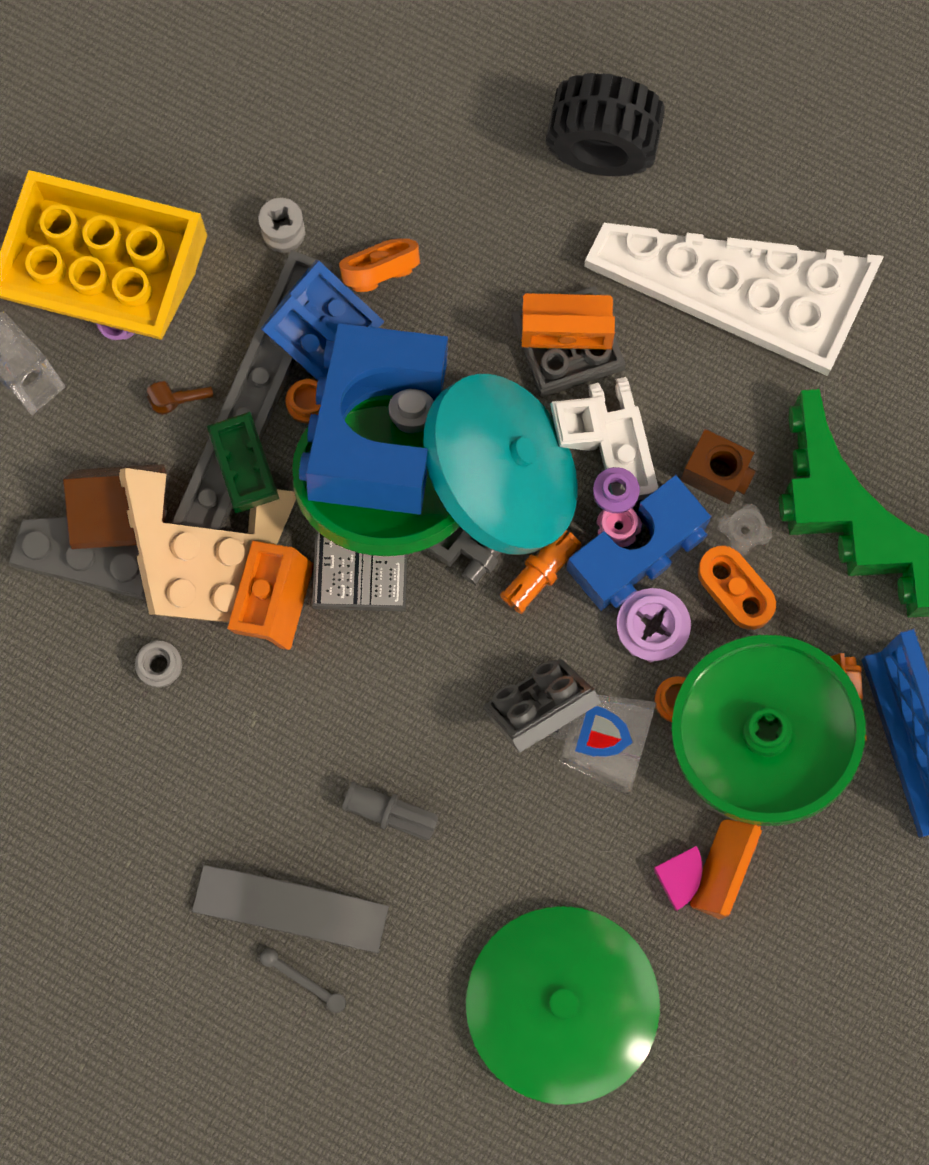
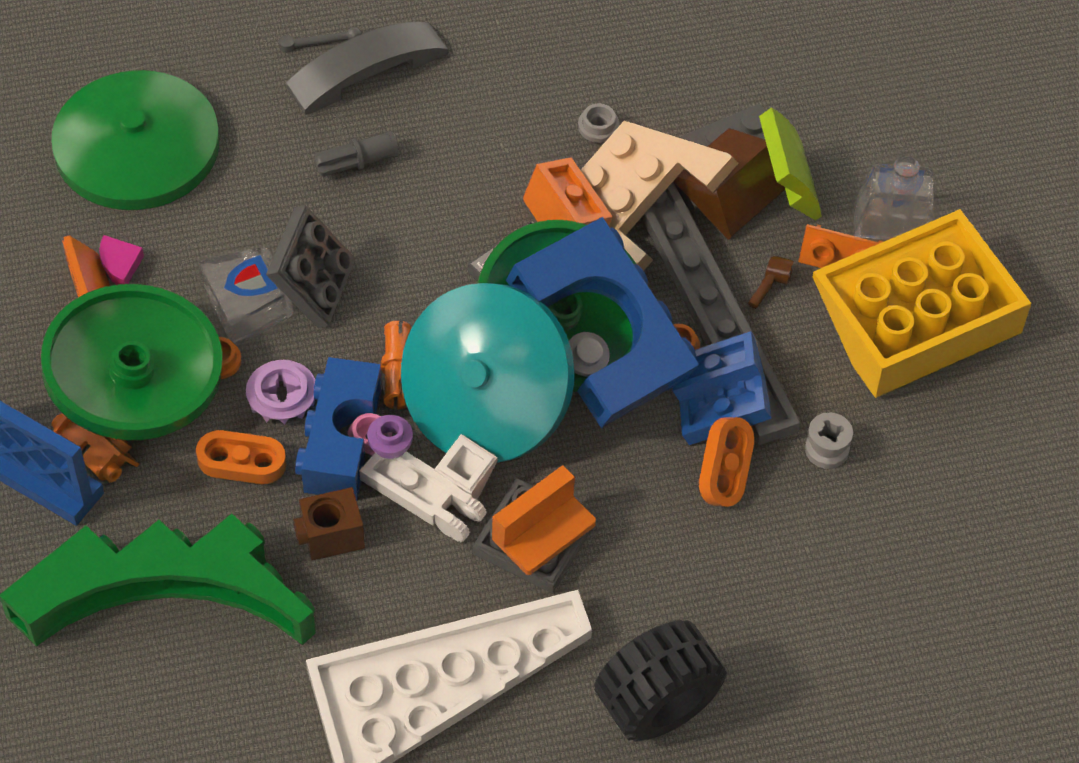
camera: 135 degrees right, 20 degrees down
(62, 461) = (790, 163): none -> lime slope
(84, 352) = (826, 246): none -> orange hinge
(243, 462) = (672, 253): dark green plate -> none
(751, 518) = (268, 493): clear plate -> none

